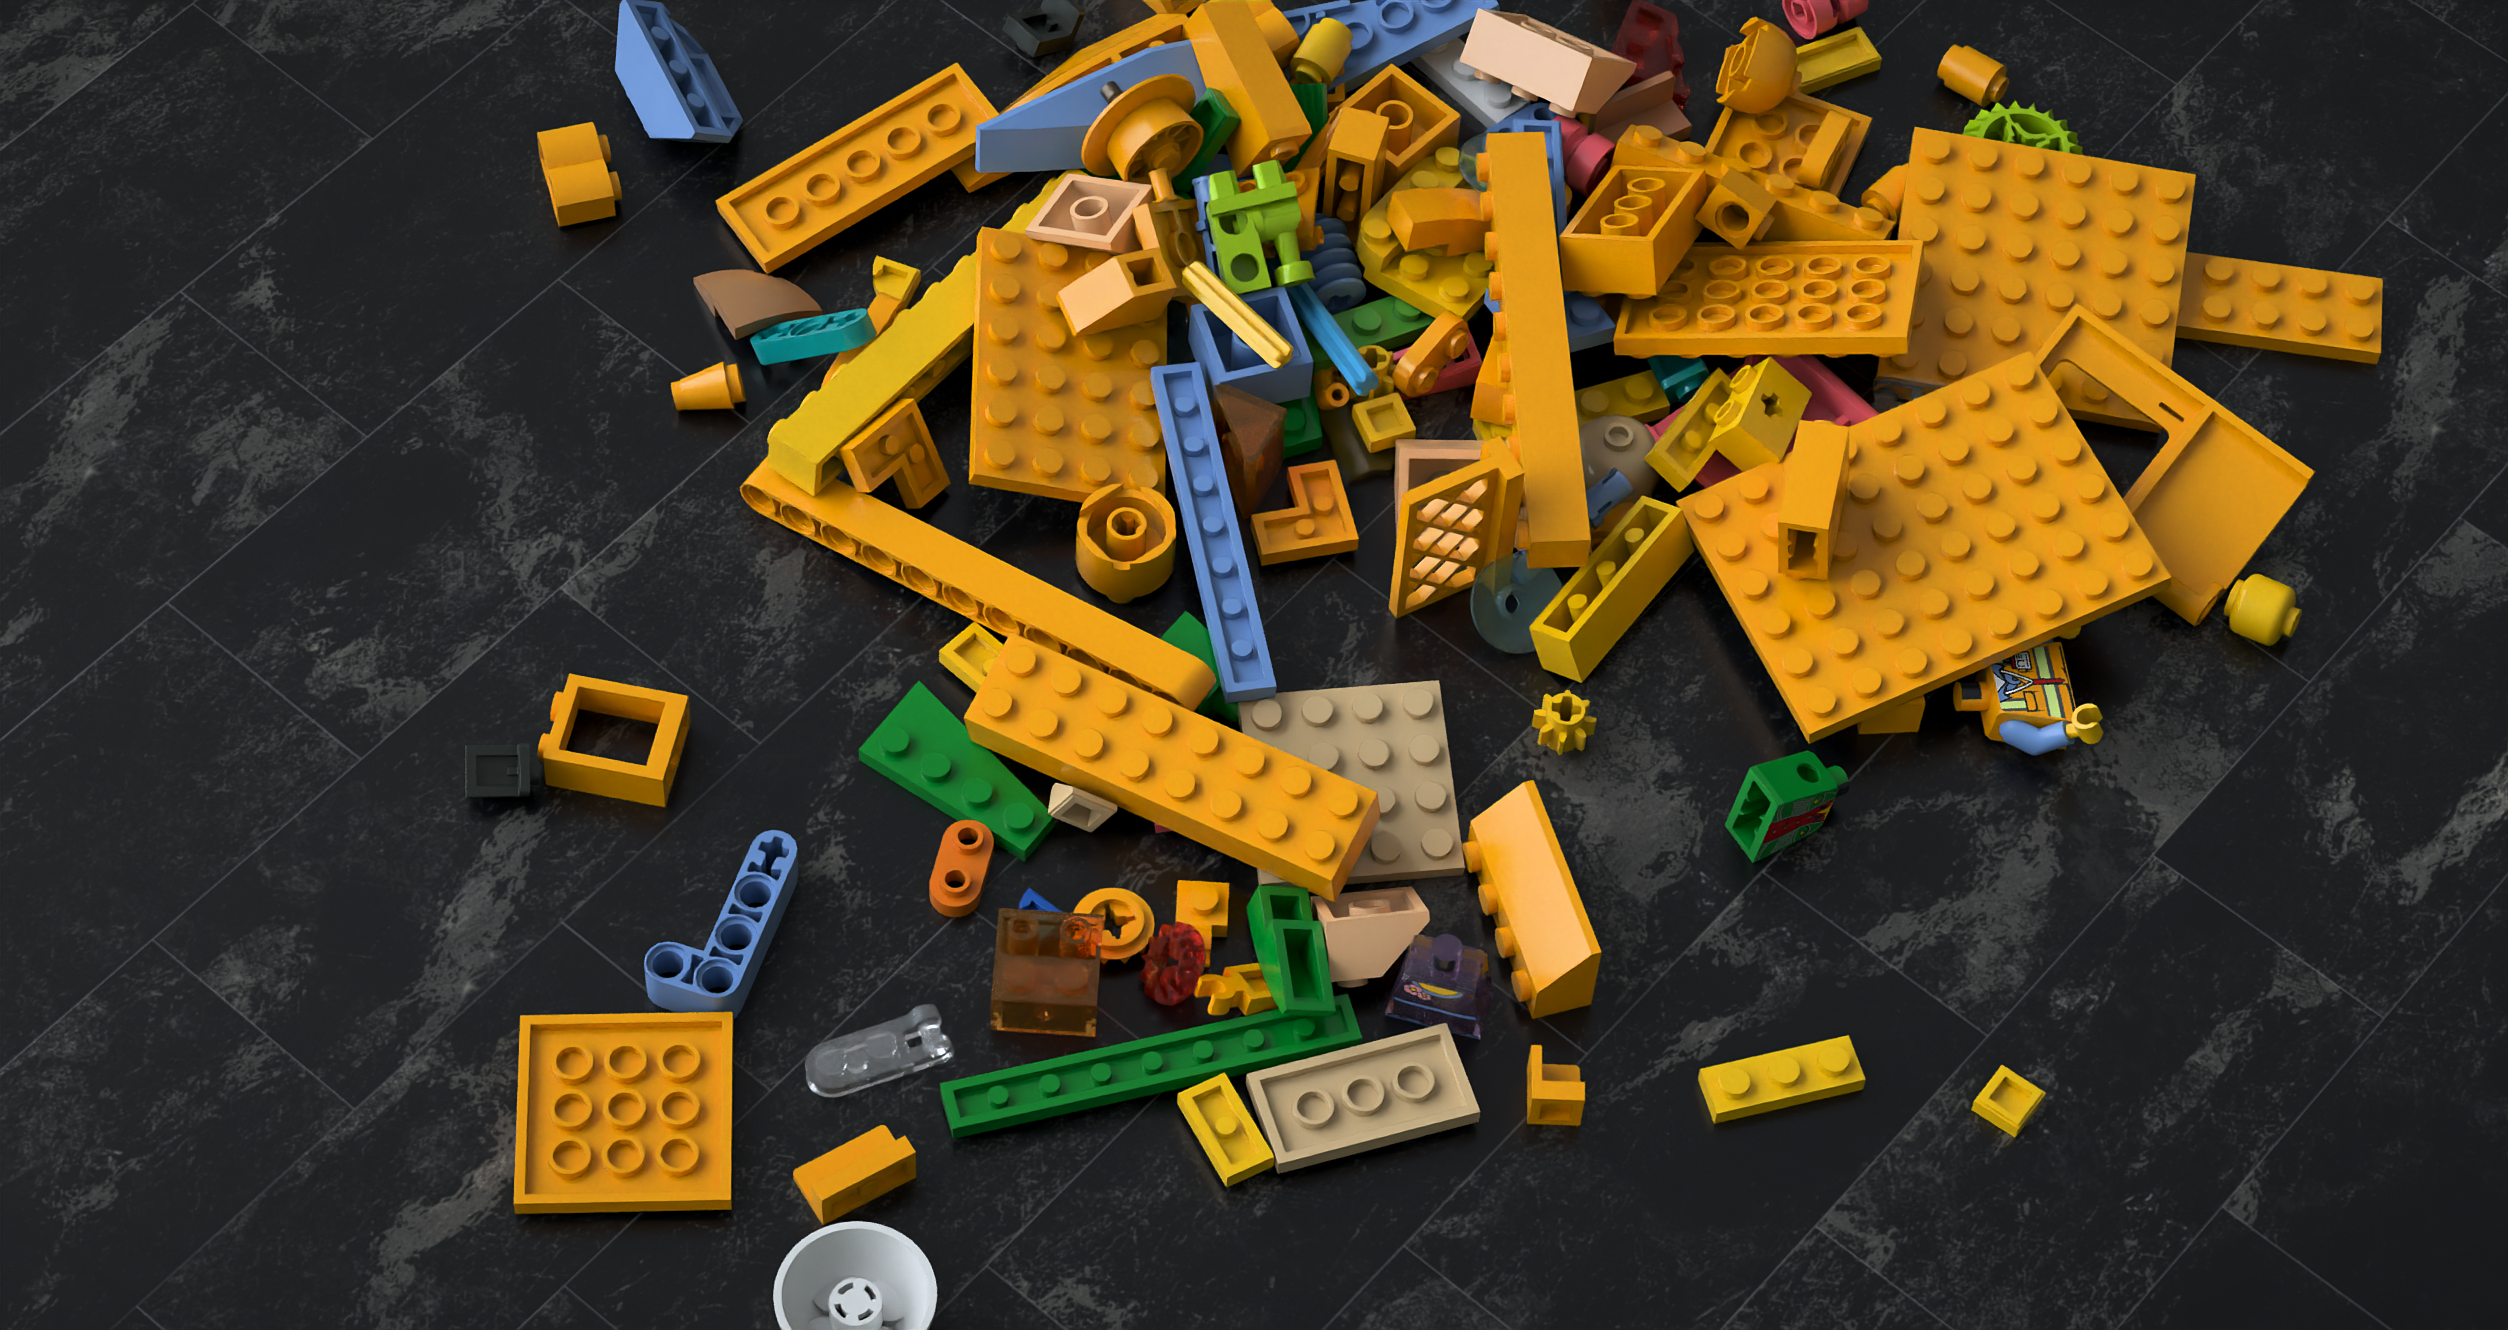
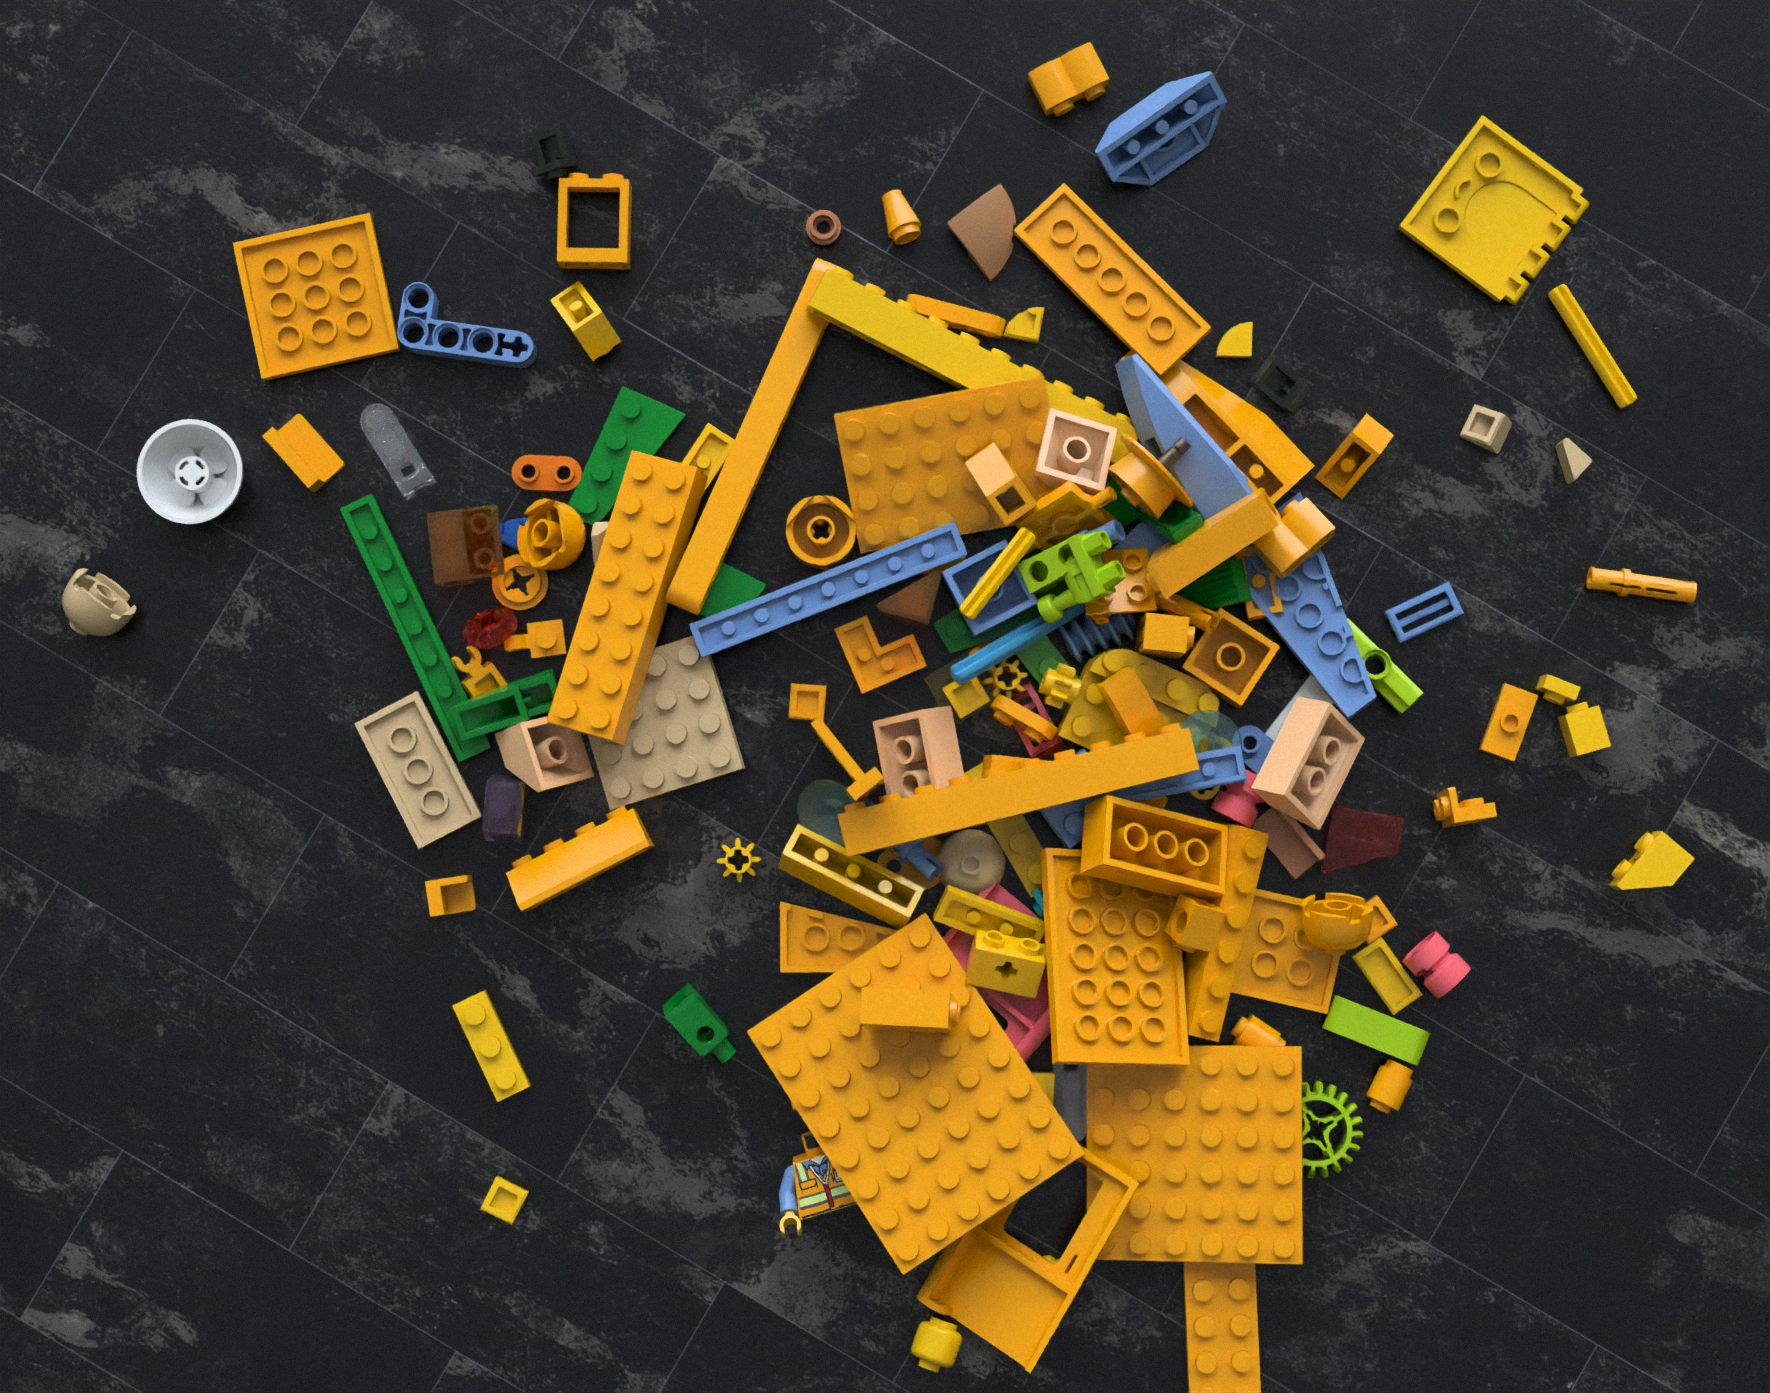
camera: 85 degrees right, 30 degrees up
(695, 469) = (819, 217): none -> nougat plate
(753, 773) = (586, 320): none -> yellow slope
(813, 336) = (937, 287): teal beam -> none
(899, 447) = (858, 358): light orange plate -> none
(978, 64) = (1236, 342): none -> yellow tile
(1037, 864) = (551, 535): none -> light orange cylinder
(1225, 1130) = (377, 684): yellow plate -> none
(1322, 52) = (1276, 593): yellow brick -> none
(1355, 614) = (807, 702): none -> light orange tile
(1397, 297) = (1060, 685): none -> yellow gear
(1694, 645) = (823, 940): none -> light orange wing
(1825, 149) = (1277, 982): light orange beam -> none
(1900, 76) = (1376, 1030): none -> lime beam

